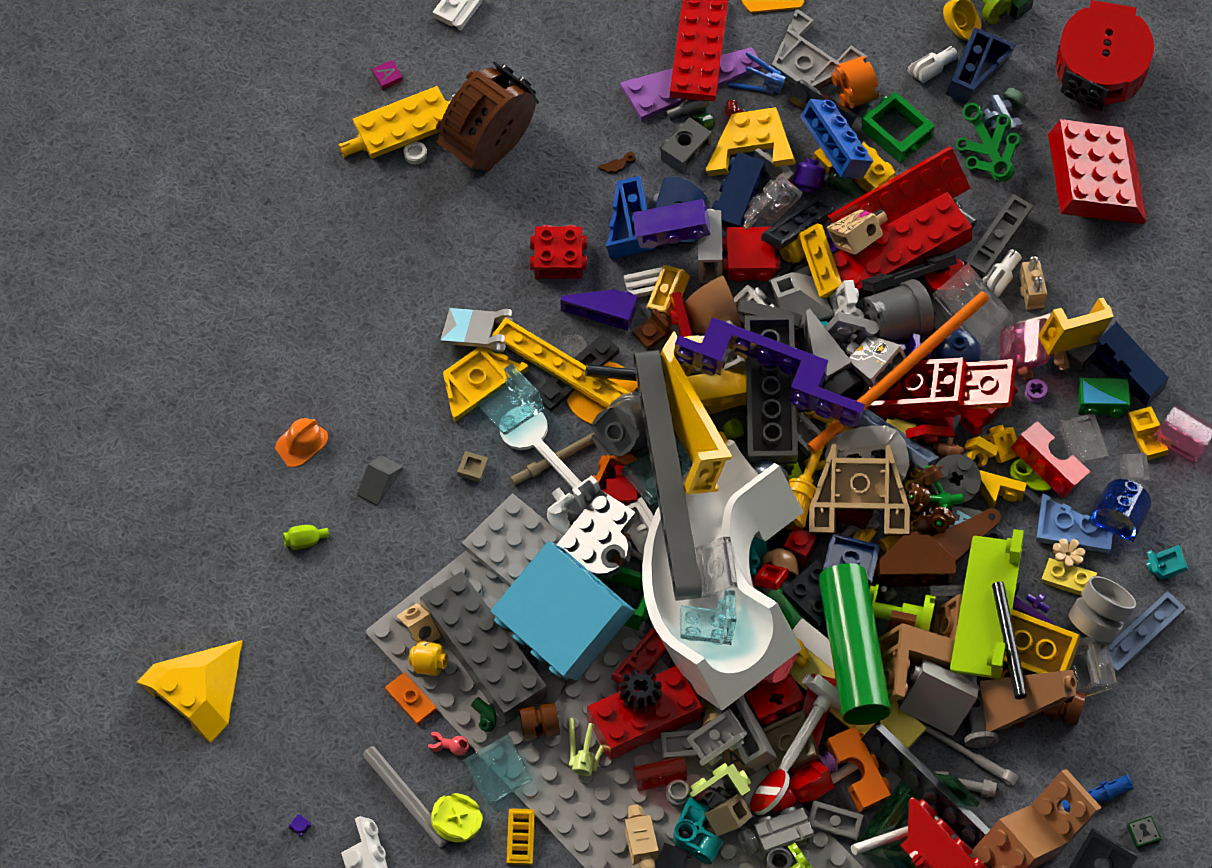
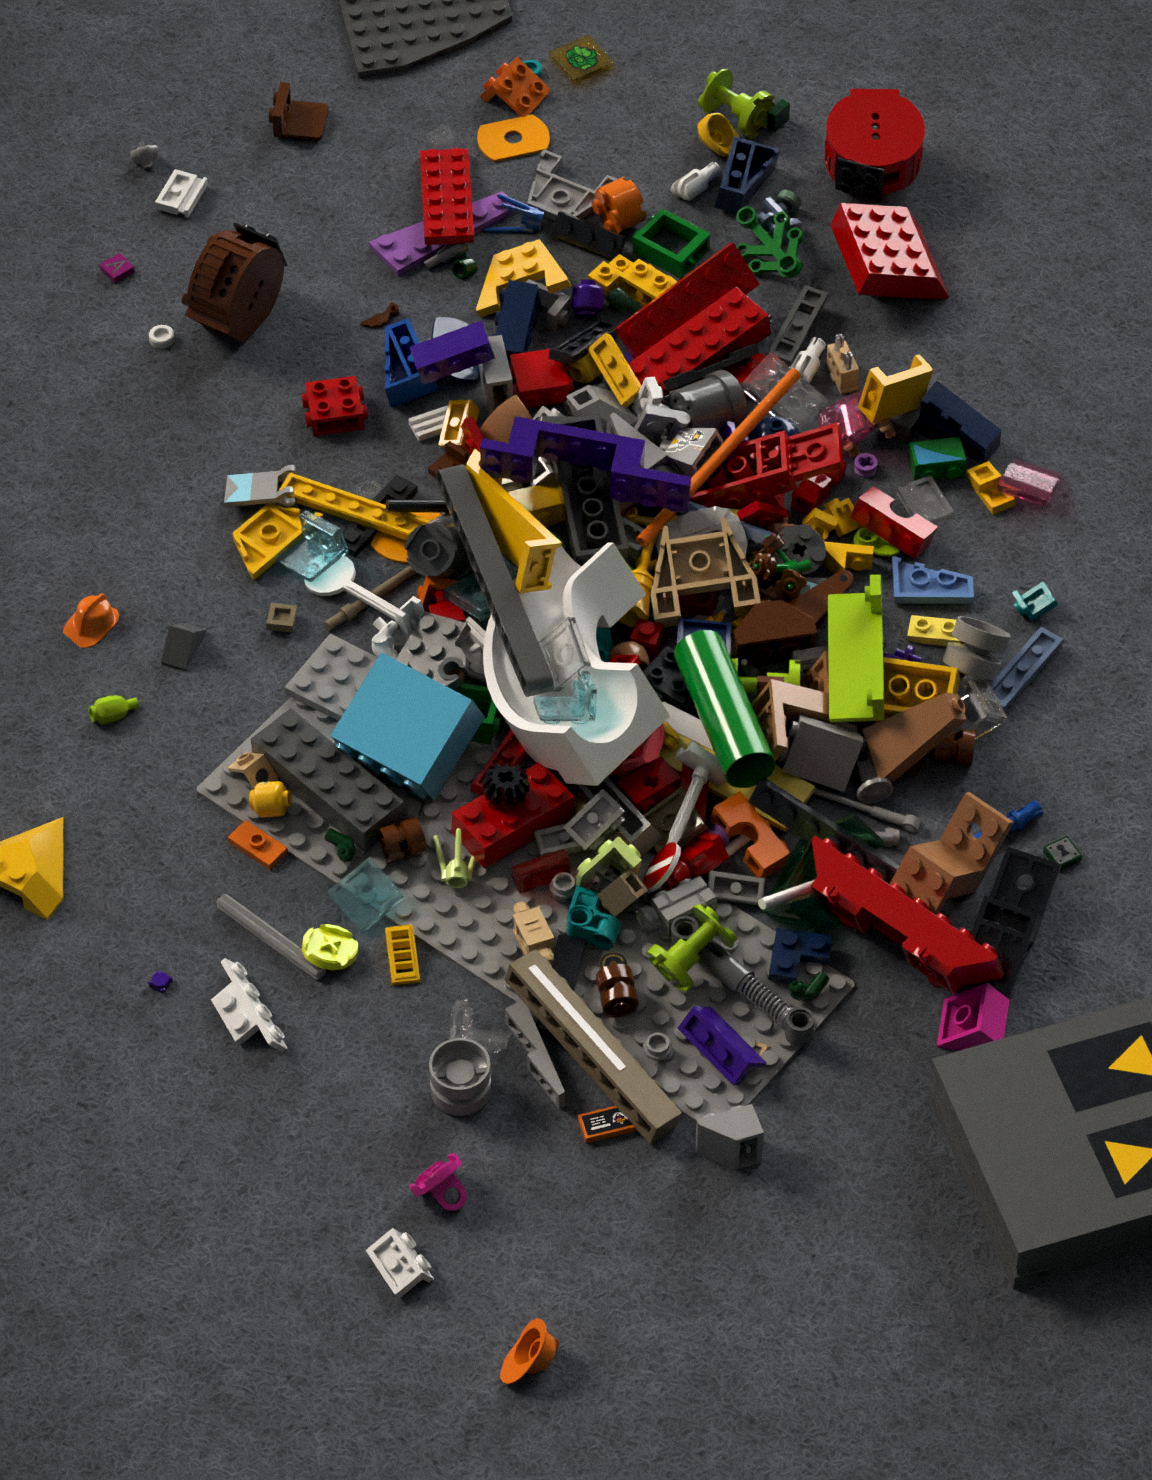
camera: 10 degrees left, 10 degrees down
(397, 124) = (136, 311): yellow plate -> none
(455, 744) = (317, 880): coral arm -> none
(607, 307) = (393, 449): dark purple slope -> none
(682, 157) = (450, 289): dark grey brick -> none
(732, 108) = (492, 249): clear red hand -> none
(773, 202) = (555, 323): clear bracket -> none
(836, 138) = (610, 255): blue brick -> none
(857, 230) = (648, 334): tan torso -> none
(1009, 639) = (889, 685): black piece -> none
(1068, 552) = (930, 606): tan plant -> none
(1122, 508) = (978, 556): clear blue brick -> none
(1135, 468) = (984, 523): clear brick -> none

